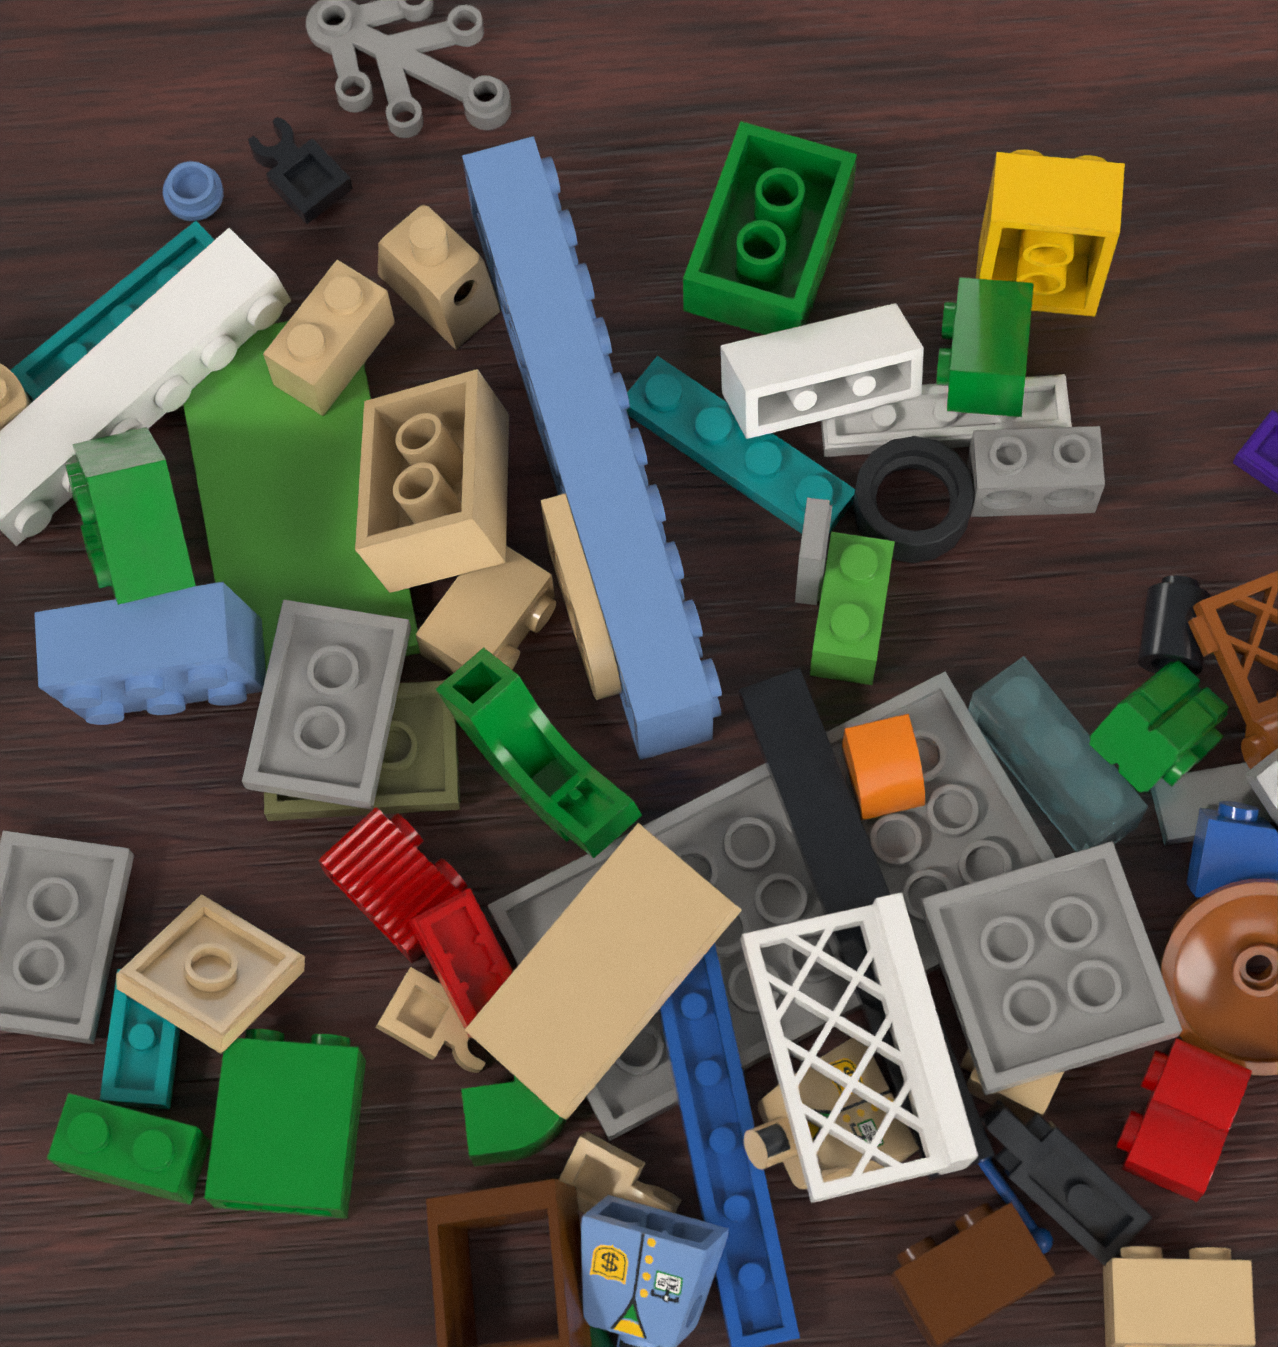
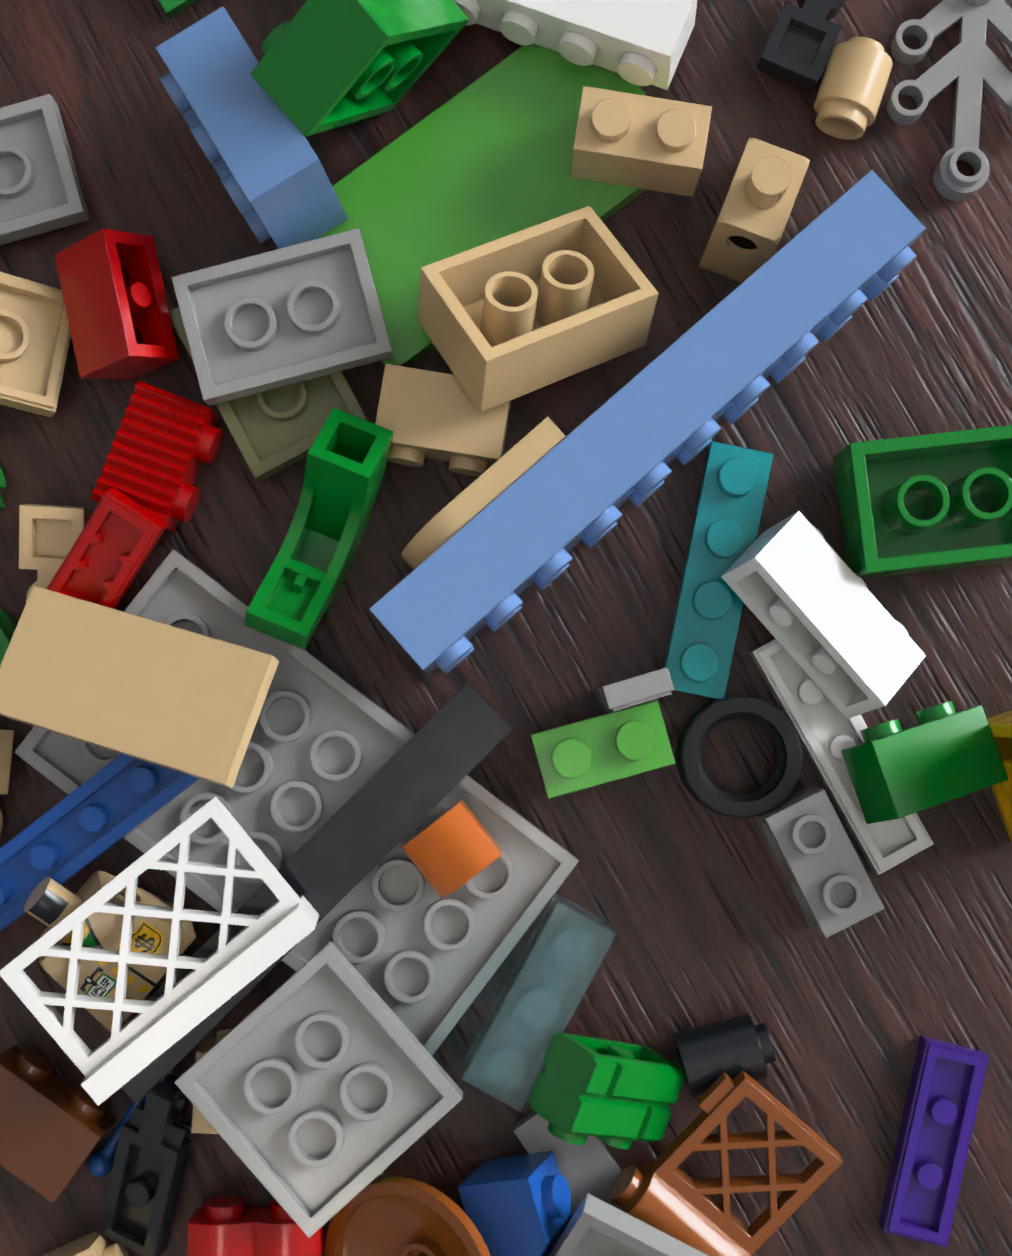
camera: 60 degrees right, 15 degrees up
(236, 854) = (116, 305): none -> red brick
(369, 154) = (852, 88): none -> tan brick

